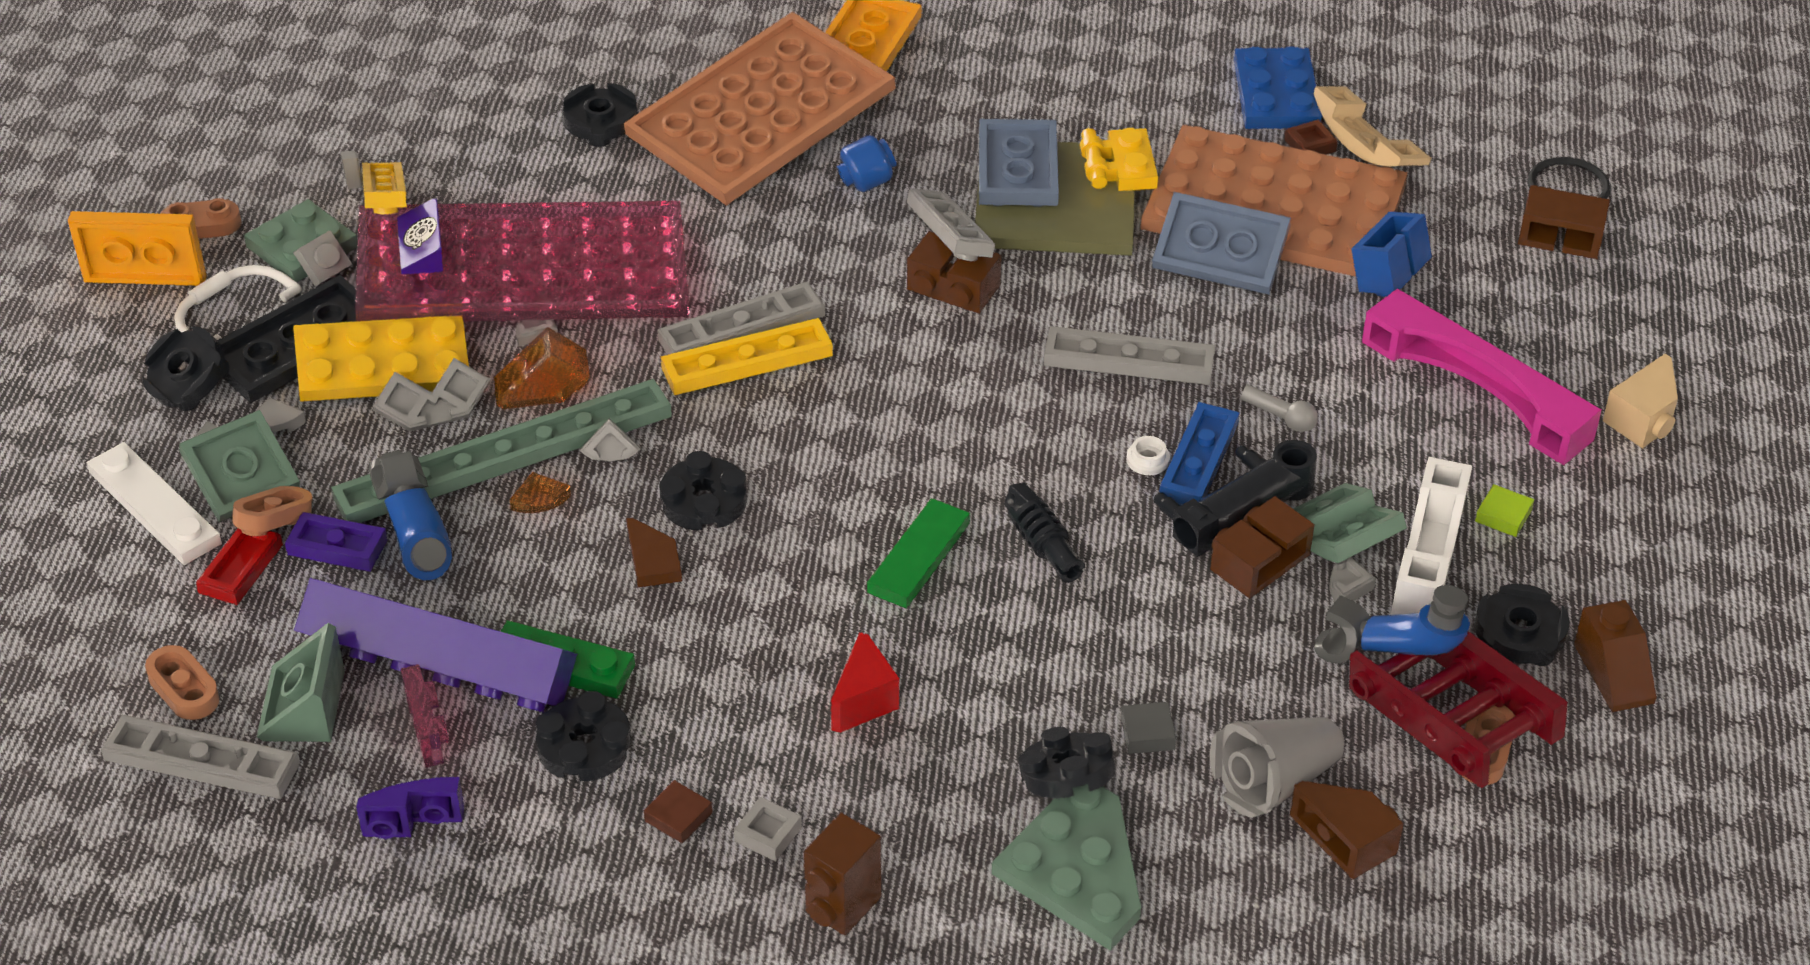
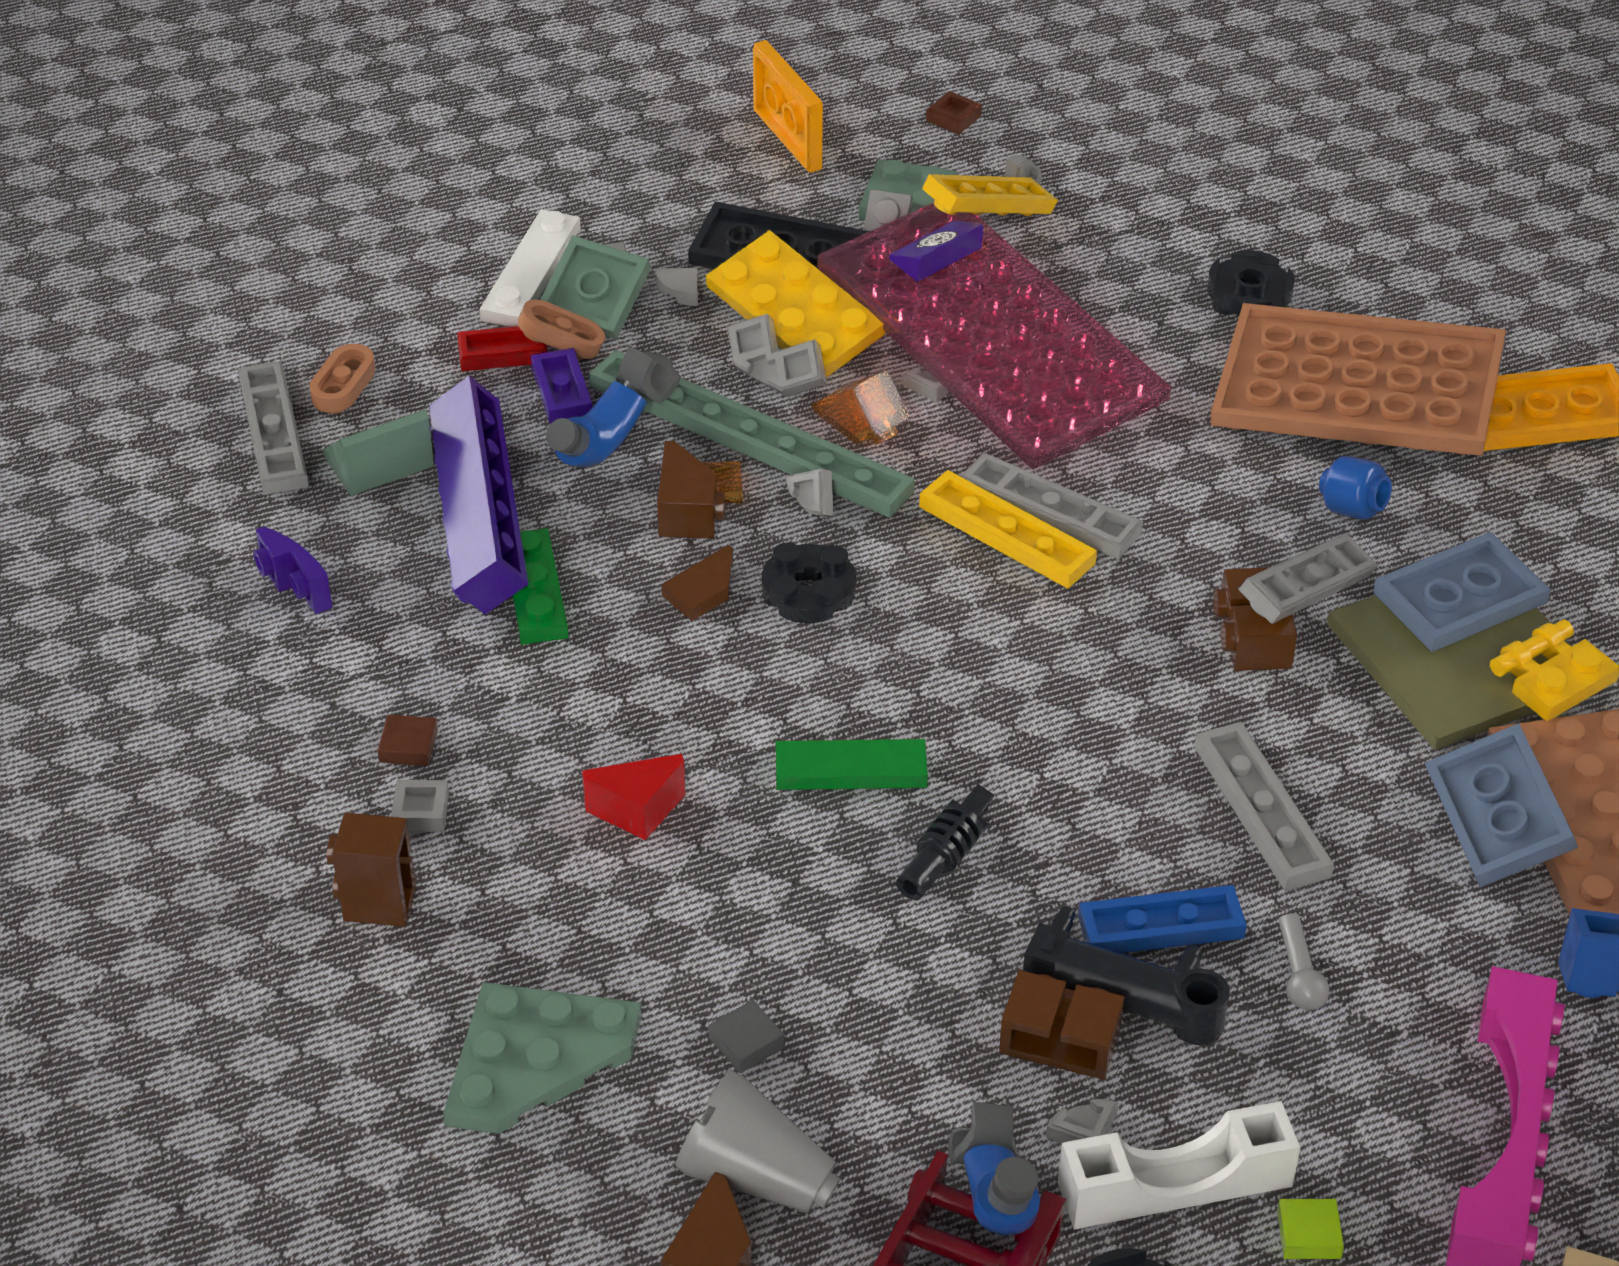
camera: 60 degrees right, 0 degrees up
(204, 370) = (684, 204): black plate -> none
(211, 217) = (880, 129): nougat plate -> none
(222, 280) = (803, 175): white piece -> none
(224, 170) = (953, 112): none -> copper tile
(421, 700) = (398, 527): clear pink plate -> none
(545, 517) = (687, 496): none -> reddish brown slope
(580, 716) = (451, 620): black plate -> none
(1066, 762) = (636, 982): black plate -> none
(1148, 456) = (1126, 878): white plate -> none
(1348, 522) = (1161, 1083): sand green slope -> none

